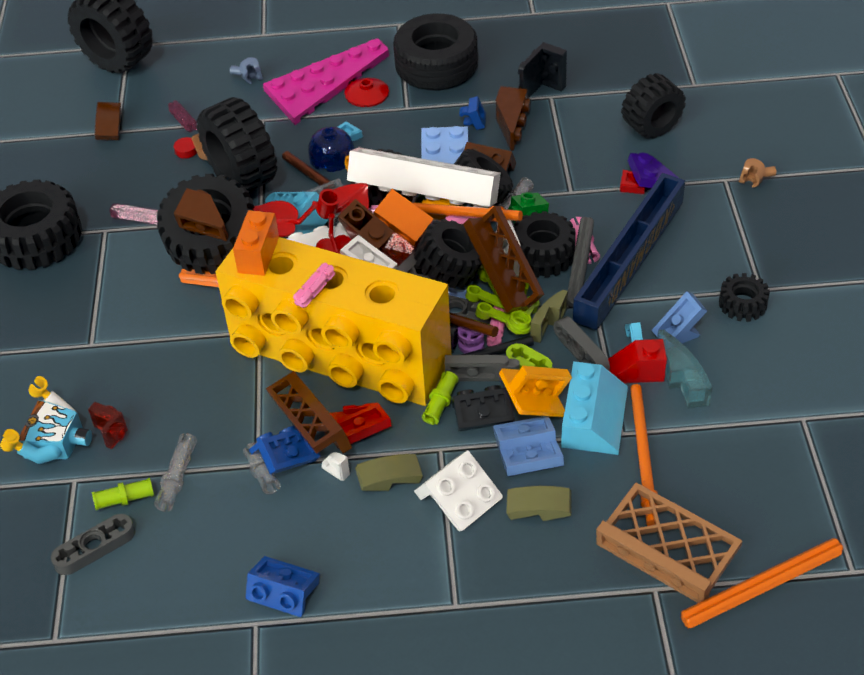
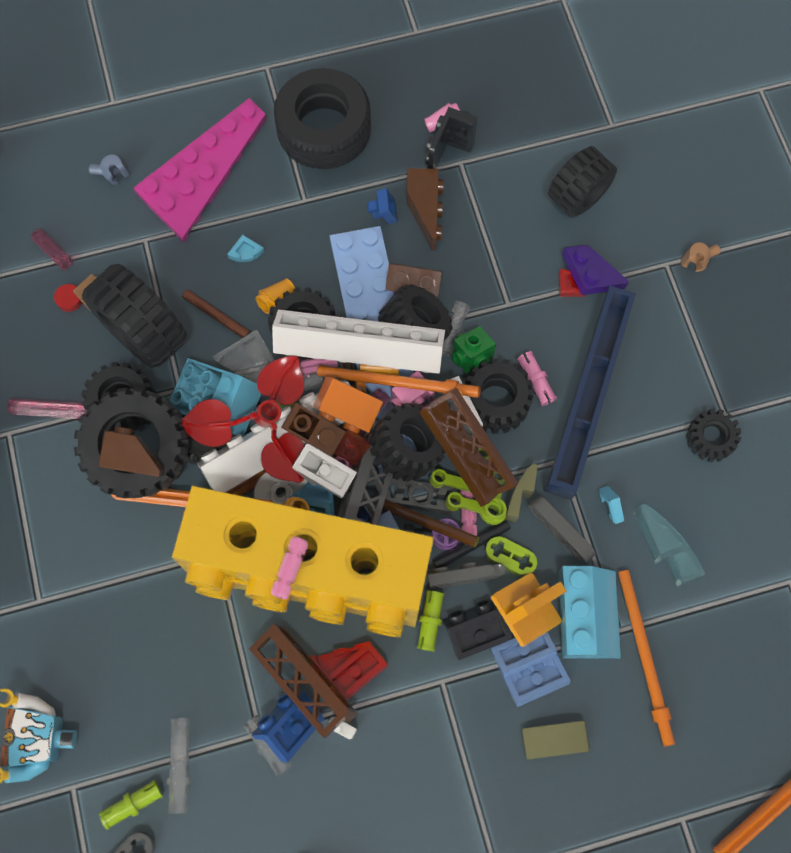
camera: 15 degrees left, 25 degrees up
(109, 422) = (88, 708): clear red bracket -> none
(256, 243) = (211, 521): orange brick -> none
(329, 148) = (235, 282): clear blue cylinder -> none
(366, 92) = (254, 190): red dish -> none
(383, 471) = (398, 727): olive slope -> none
(461, 490) = (473, 739): white bracket -> none
(580, 258) = (541, 415): dark grey axle -> none
(640, 362) = (622, 544): red slope -> none
(658, 564) = (688, 797): medium nougat fence -> none
(681, 318) = (656, 482): medium blue slope -> none

